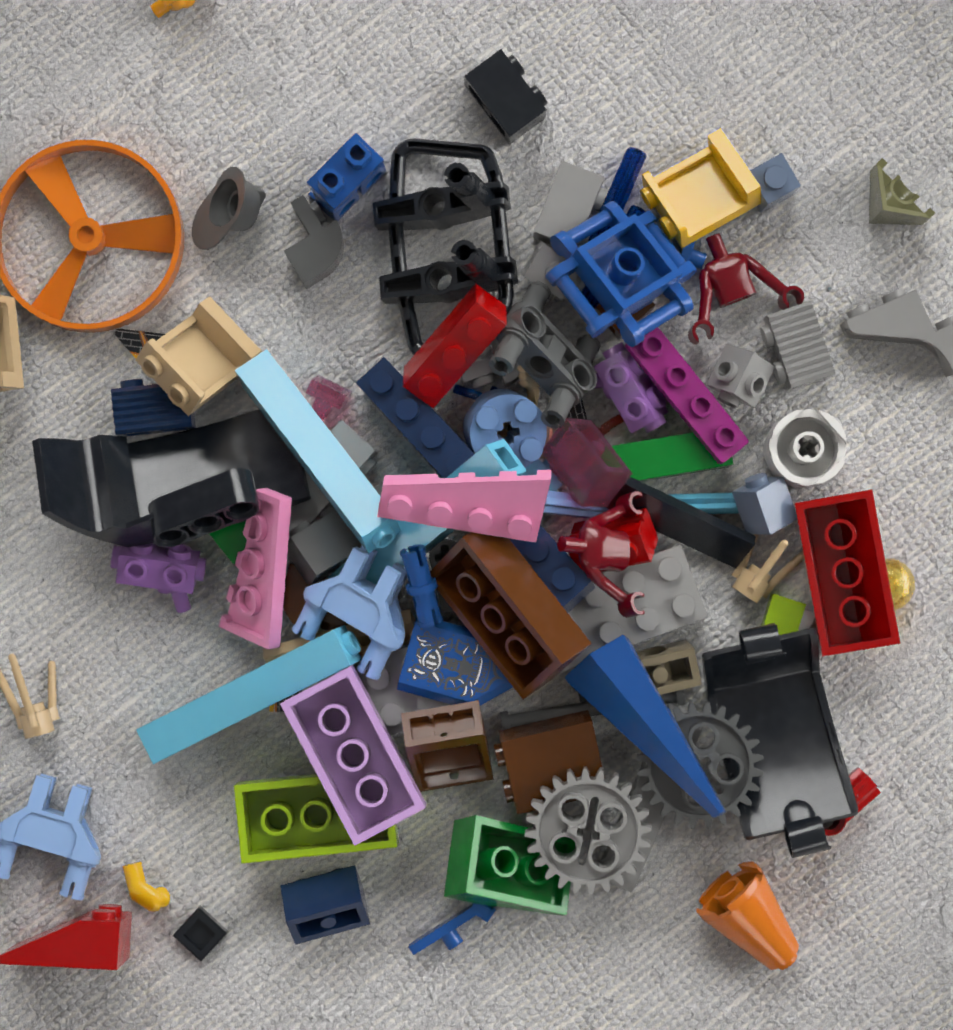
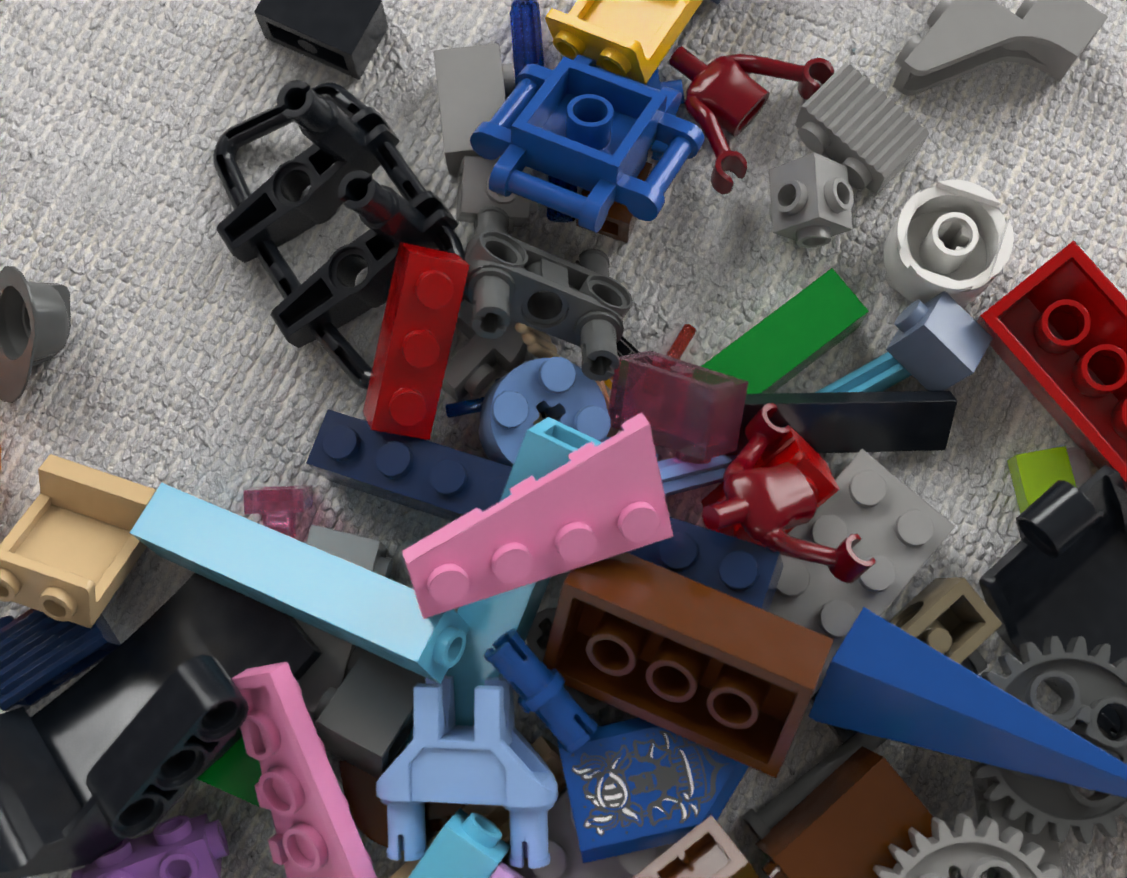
camera: 25 degrees left, 10 degrees down
(320, 251) = (175, 323): dark grey brick -> none
(348, 170) = (158, 207): blue hips -> none
(631, 390) = (669, 283): medium lavender brick -> none
(688, 396) = (759, 254): magenta bracket -> none
(755, 581) = (984, 452): tan plant -> none

